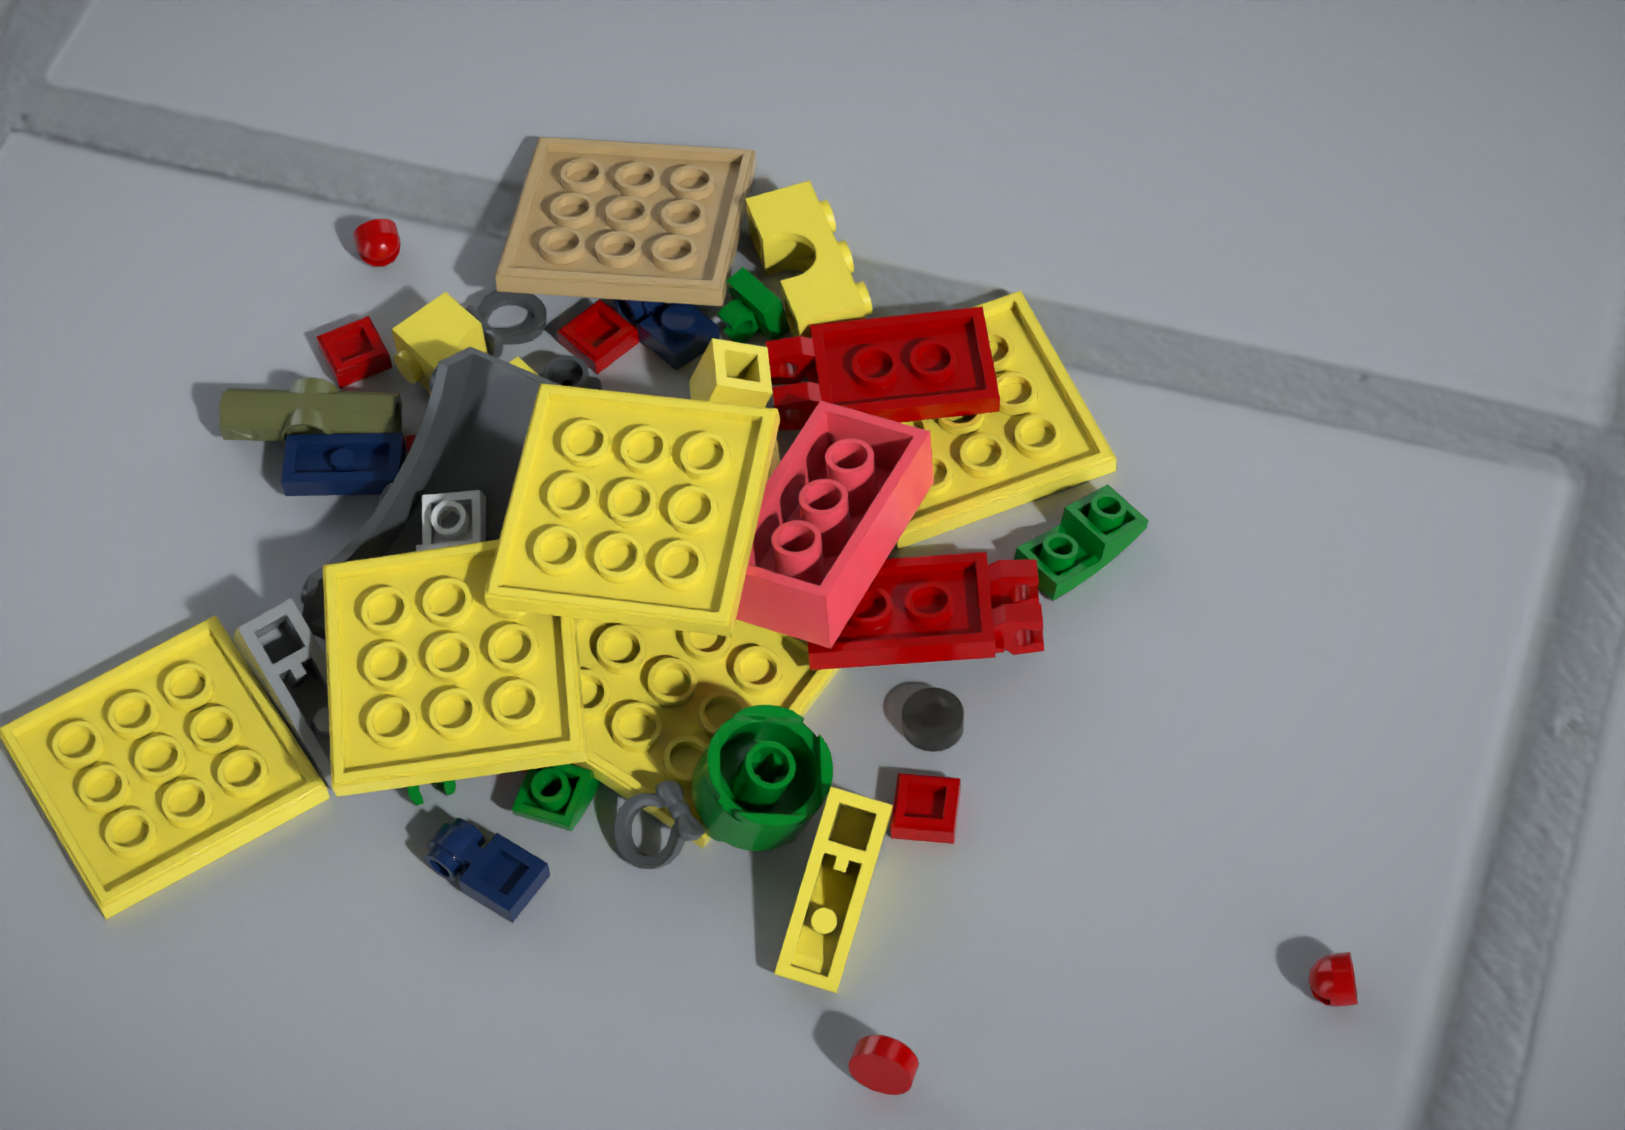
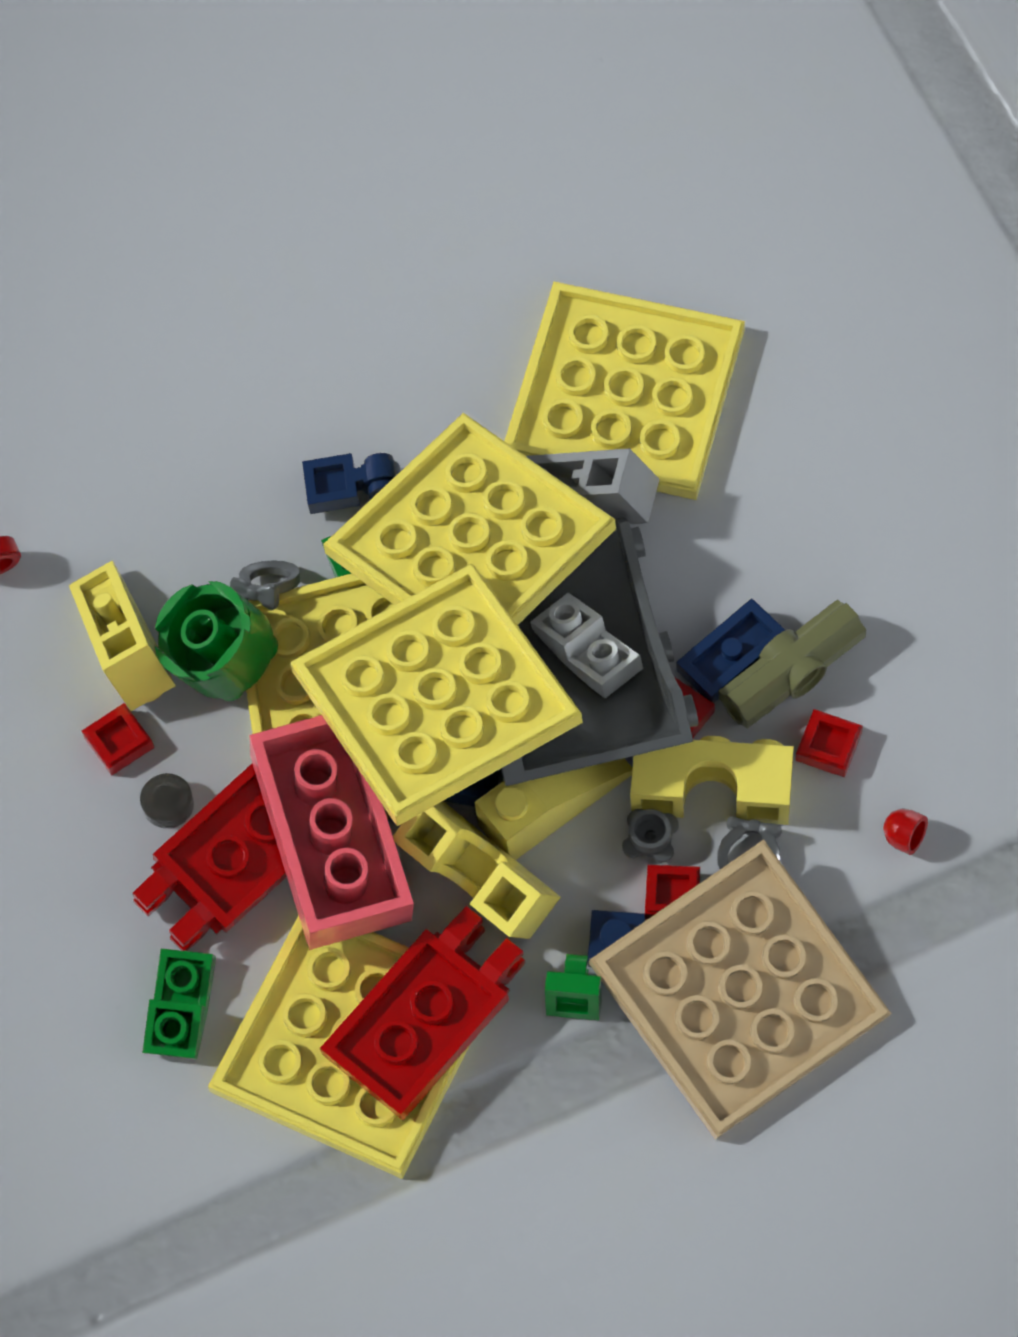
camera: 140 degrees right, 10 degrees up
(796, 233) = (606, 1084): light yellow arch -> none

